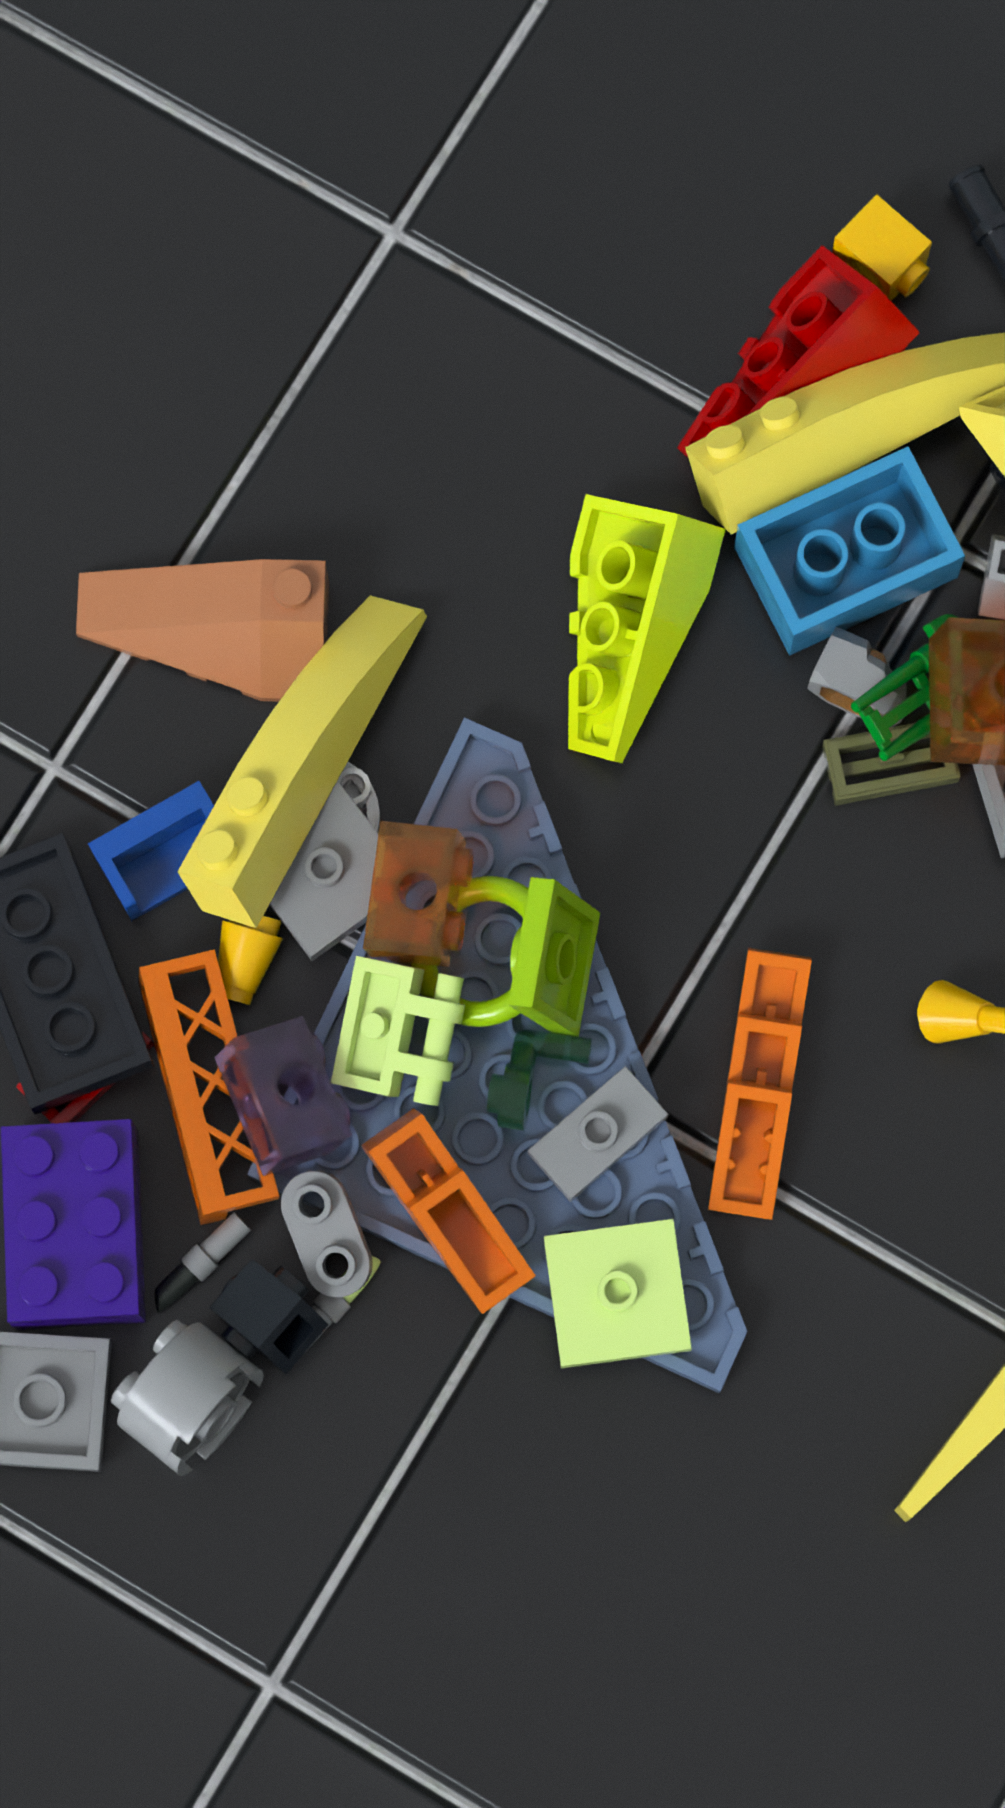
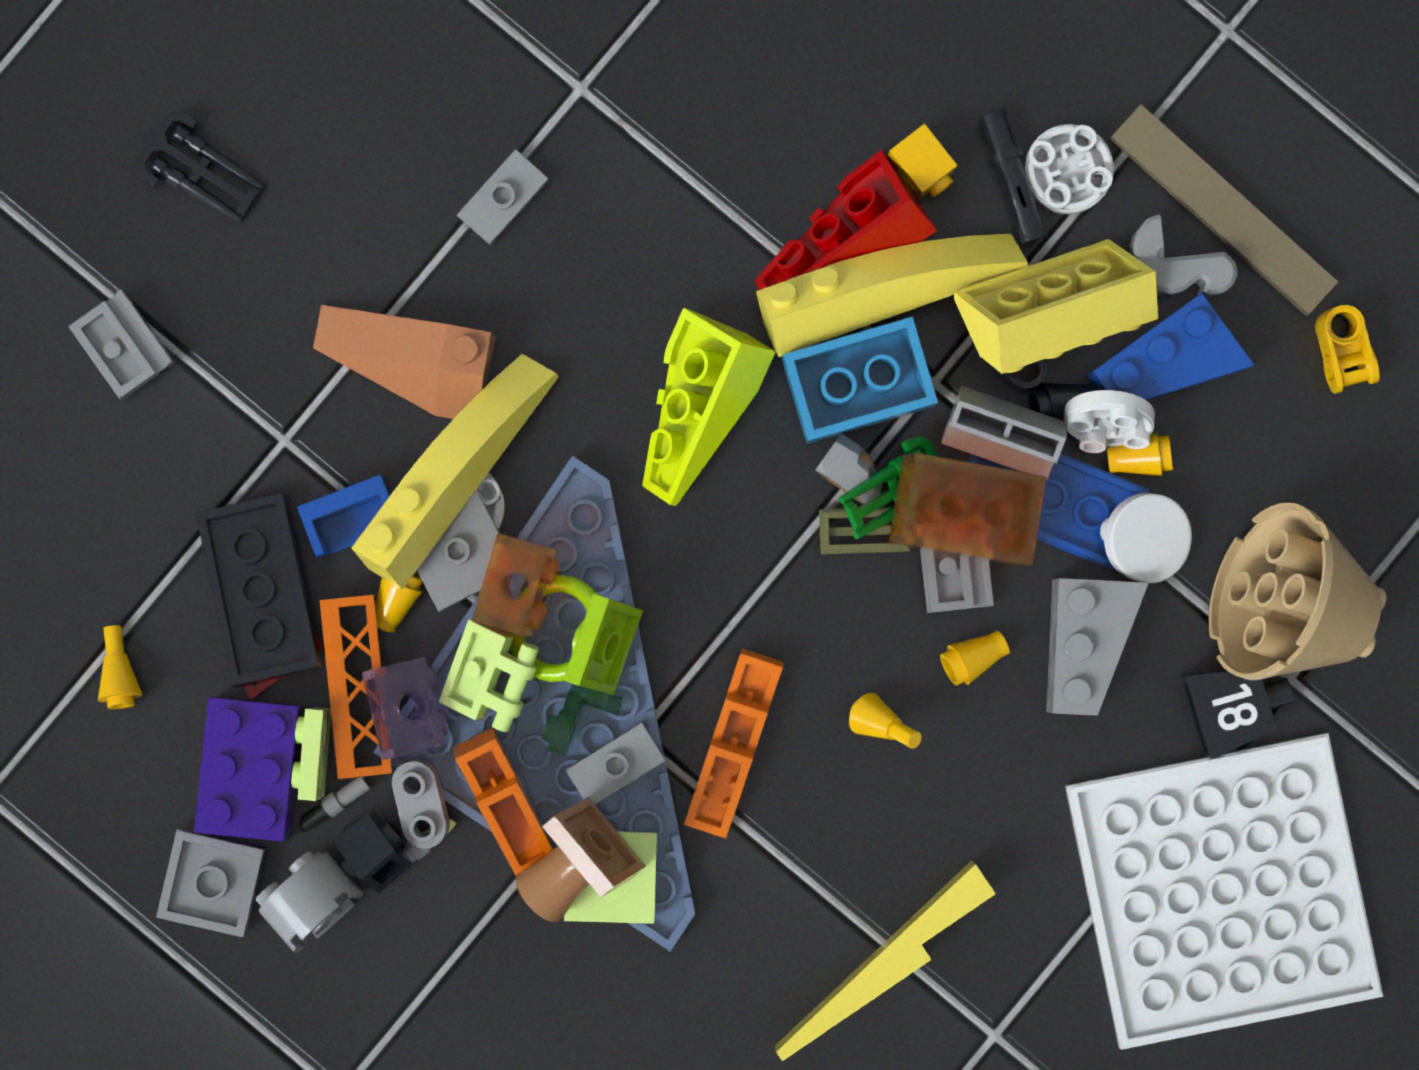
camera: 10 degrees right, 10 degrees up
(161, 1214) = (314, 735): none -> yellowish green plate
(310, 390) = (503, 197): none -> light grey plate
(560, 1277) = (585, 855): none -> medium nougat plant

